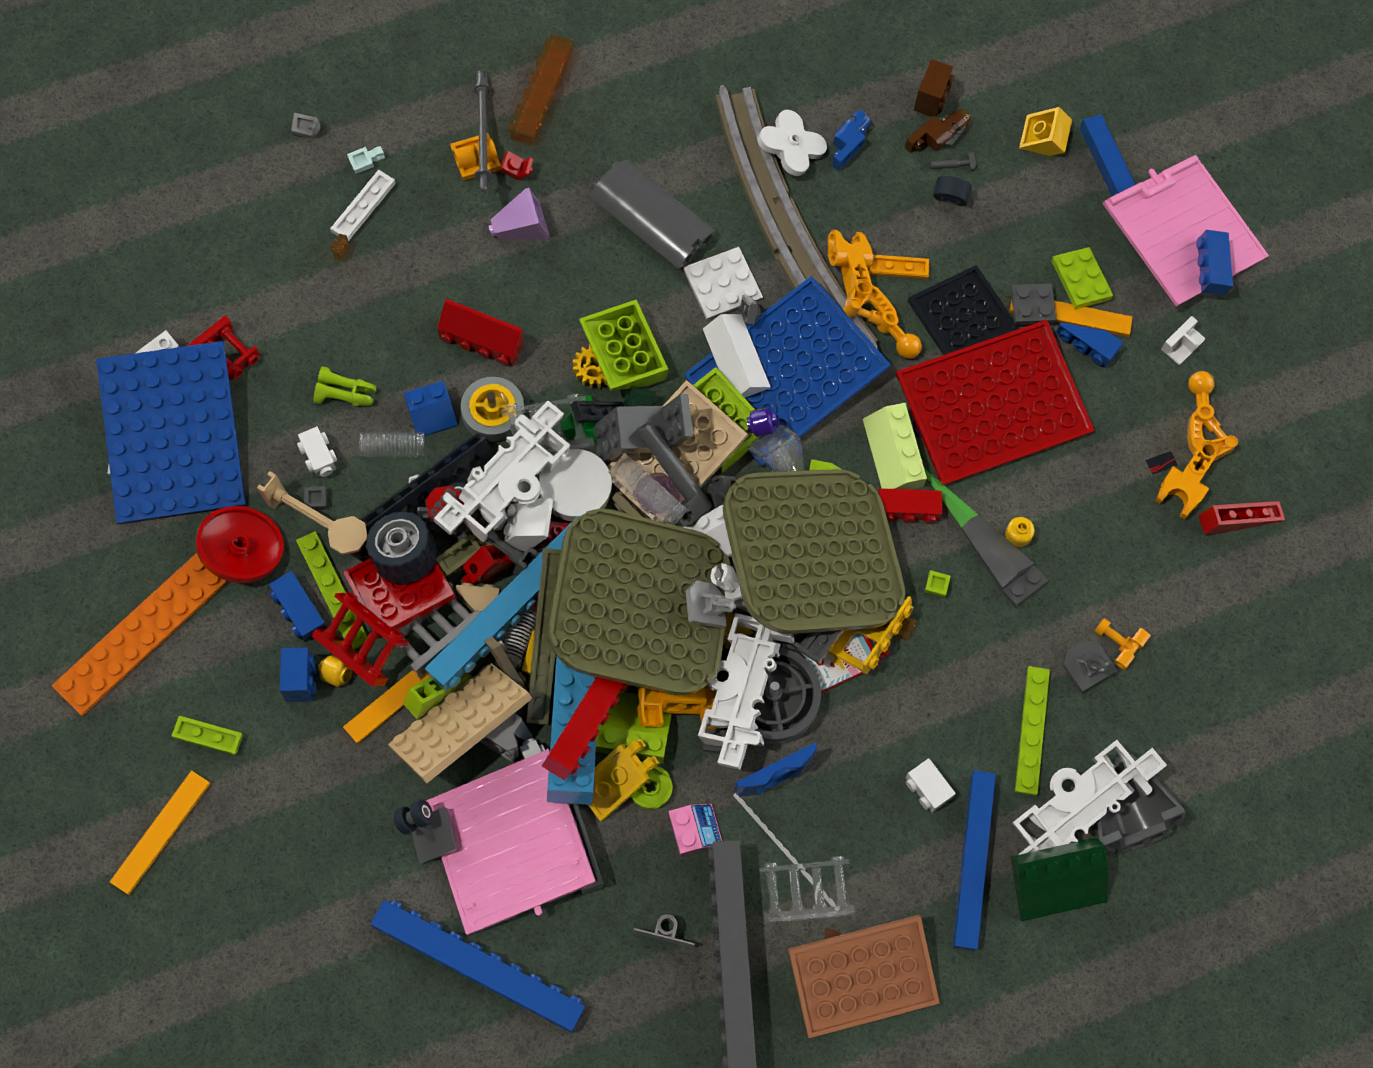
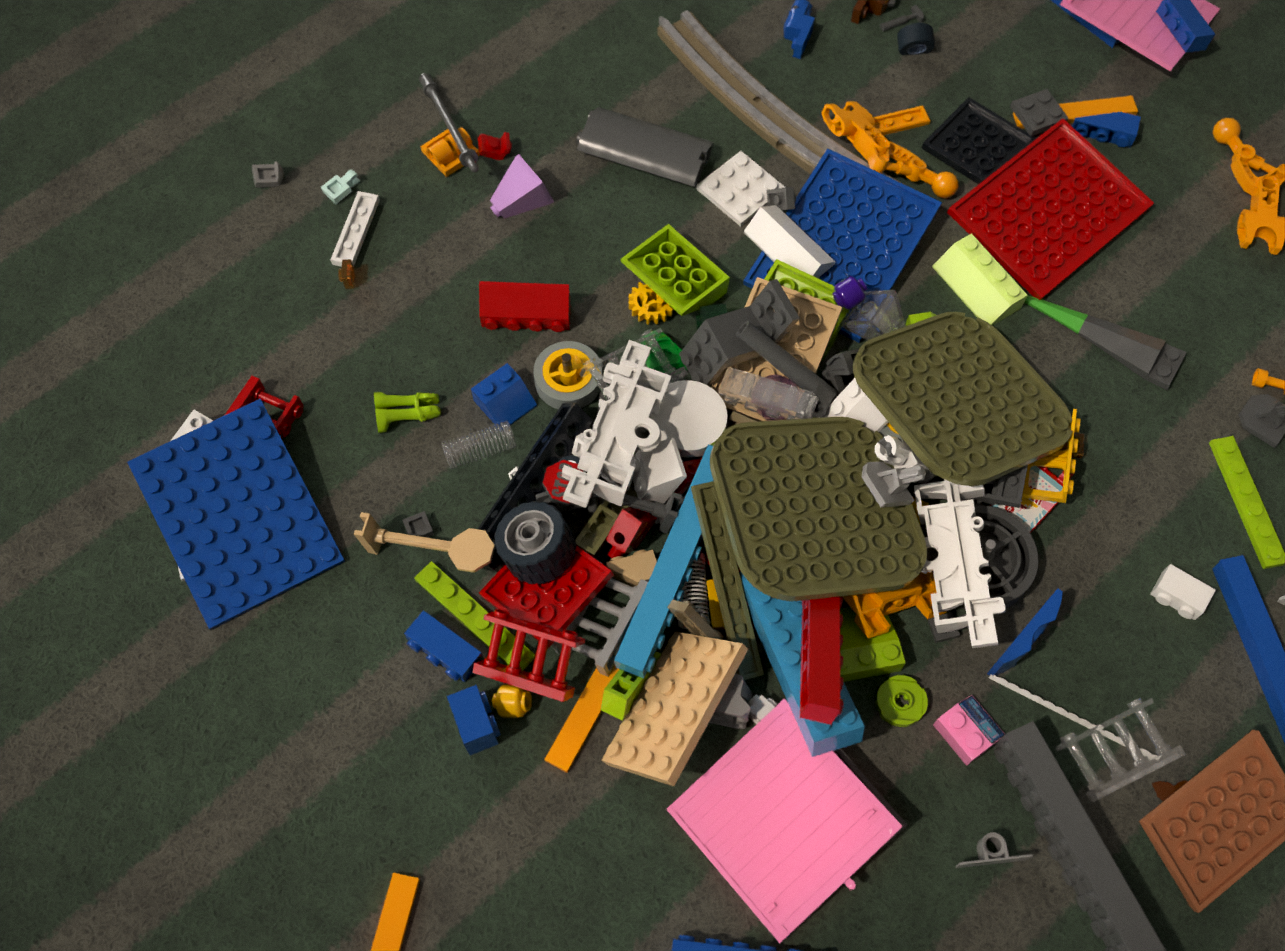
camera: 15 degrees left, 5 degrees down
(138, 635) = (282, 732): orange plate -> none
(207, 735) = (396, 825): lime plate -> none
(239, 544) = (355, 603): red dish -> none
(319, 457) = (406, 483): white brick -> none
(430, 829) = (689, 839): dark grey plate -> none
(542, 89) = (489, 75): clear orange brick -> none
(592, 410) = (673, 341): black tile -> none
(619, 778) = (874, 699): yellow tile -> none
(792, 142) = (748, 45): white plant -> none
(912, 504) = (1026, 325): red brick -> none
(937, 584) = (1083, 392): lime plate -> none
(1019, 531) = (1137, 315): yellow head -> none
(1082, 278) = (1069, 77): lime plate -> none
(1161, 462) = (1226, 212): black sticker -> none
(1183, 341) = (1188, 102): white panel -> none

